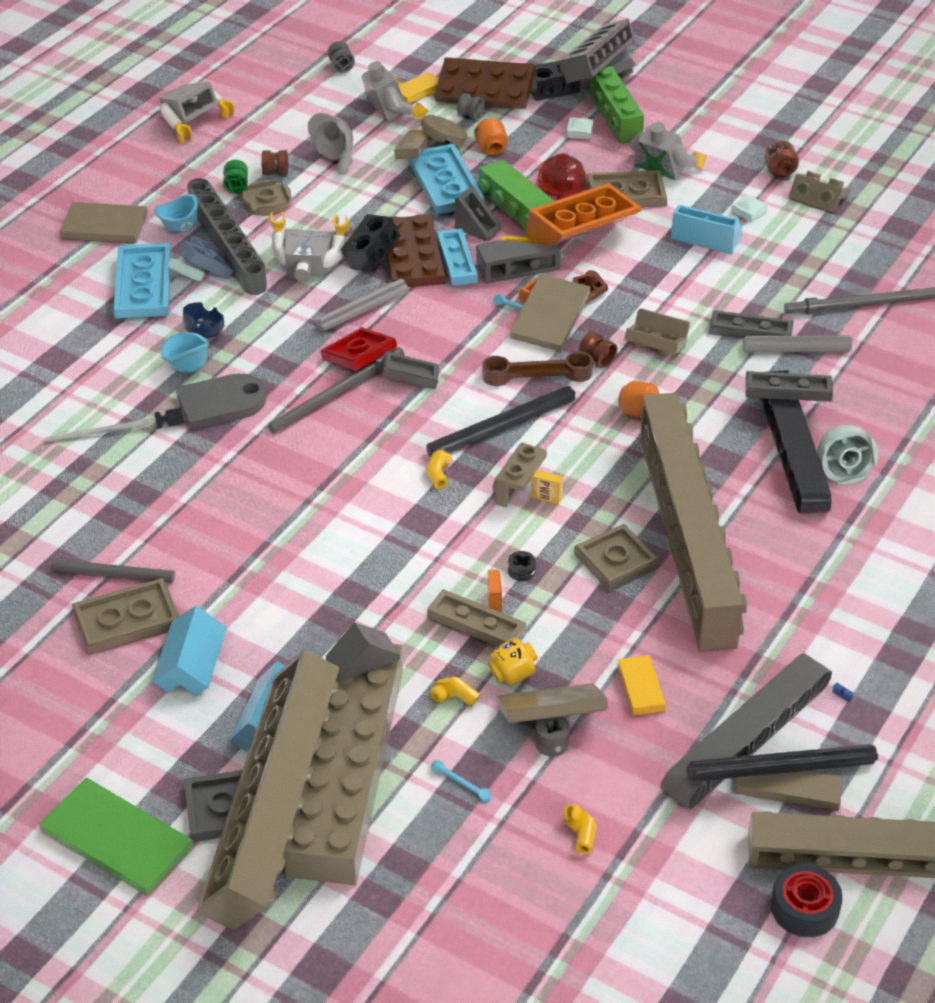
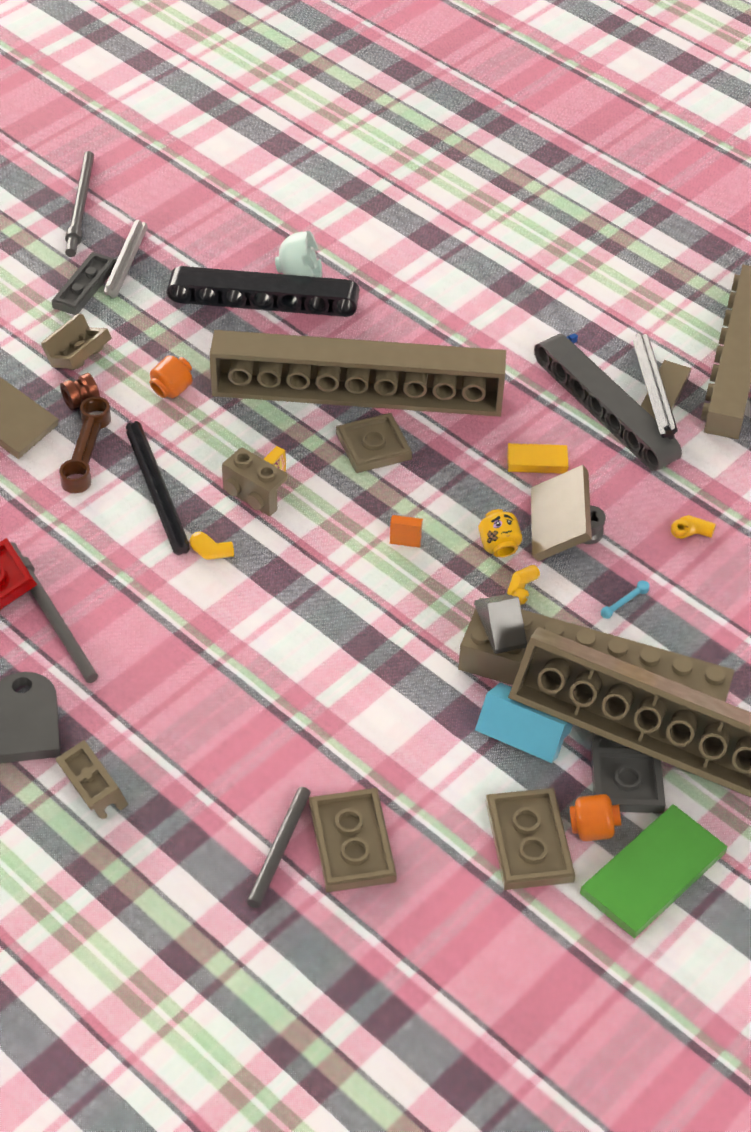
camera: 80 degrees left, 5 degrees up
(143, 738) = (529, 839): none -> dark tan tile
(157, 444) = (91, 779): none -> dark tan hinge
(162, 774) = (594, 817): none -> orange head
(172, 418) = (41, 769): flat silver piece -> none
(190, 652) = (430, 782): medium azure piece -> none
(410, 370) = (50, 541): dark grey tile -> none
(474, 618) = (436, 552): dark tan plate -> none
(521, 566) = (369, 501): black bush -> none
(788, 386) = (206, 269): dark grey tile -> none

